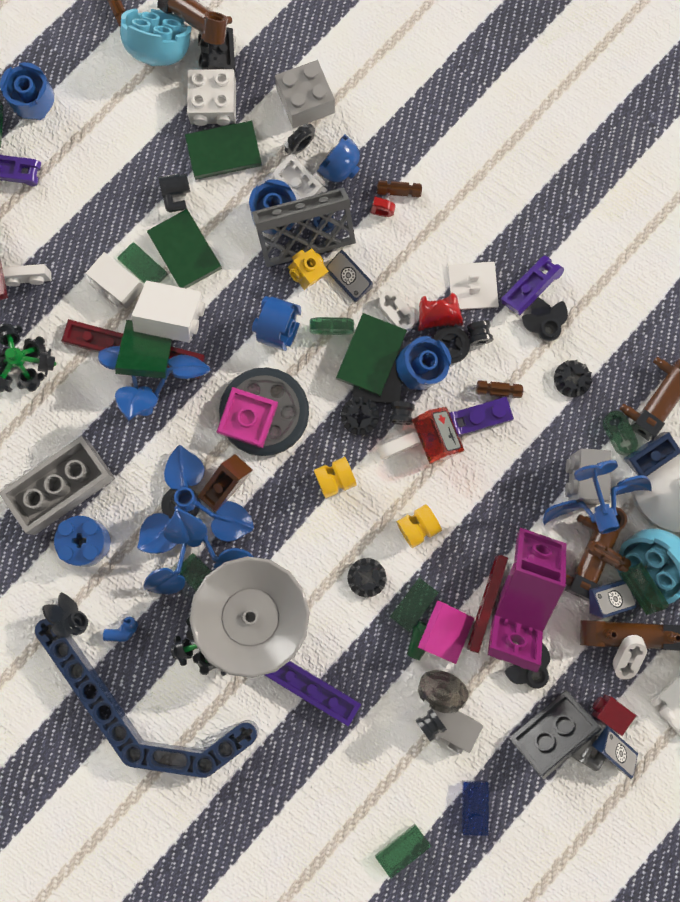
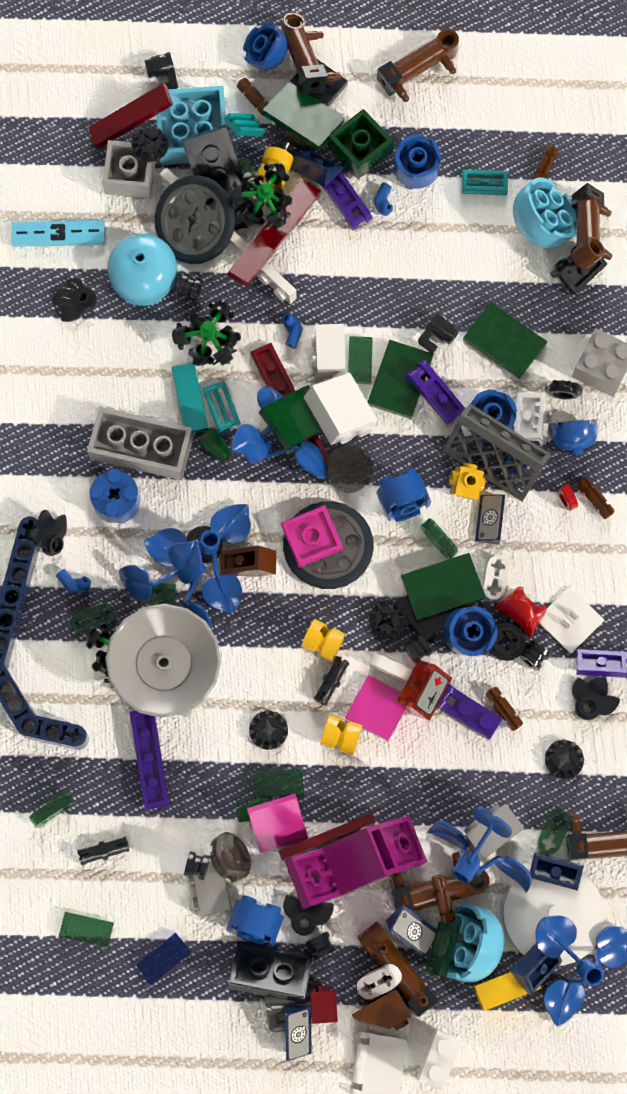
camera: 50 degrees right, 5 degrees down
(32, 145) = (380, 200): none -> blue arm
(55, 416) = (189, 397): none -> teal tile
(73, 293) = (294, 329): none -> blue arm
(92, 62) = (493, 188): none -> teal tile
(103, 406) = (228, 424): none -> teal tile
(110, 429) = (215, 445): none -> dark green cone
(158, 638) = (92, 613): none -> clear green beam
(211, 97) = (537, 296): white brick -> none
(218, 232) = (435, 392): none -> dark purple plate
(219, 346) = (348, 469): none -> clear smoke tile
(287, 800) = (52, 809): none -> clear green beam
(352, 785) = (103, 850): none -> black pin
(370, 498) = (331, 681): none -> black pin
(419, 482) = (376, 708): none -> dark pink tile
(509, 714) = (255, 921): none -> blue brick
(565, 677) = (321, 945): none -> black wheel
(654, 674) = (385, 1012): none -> reddish brown slope

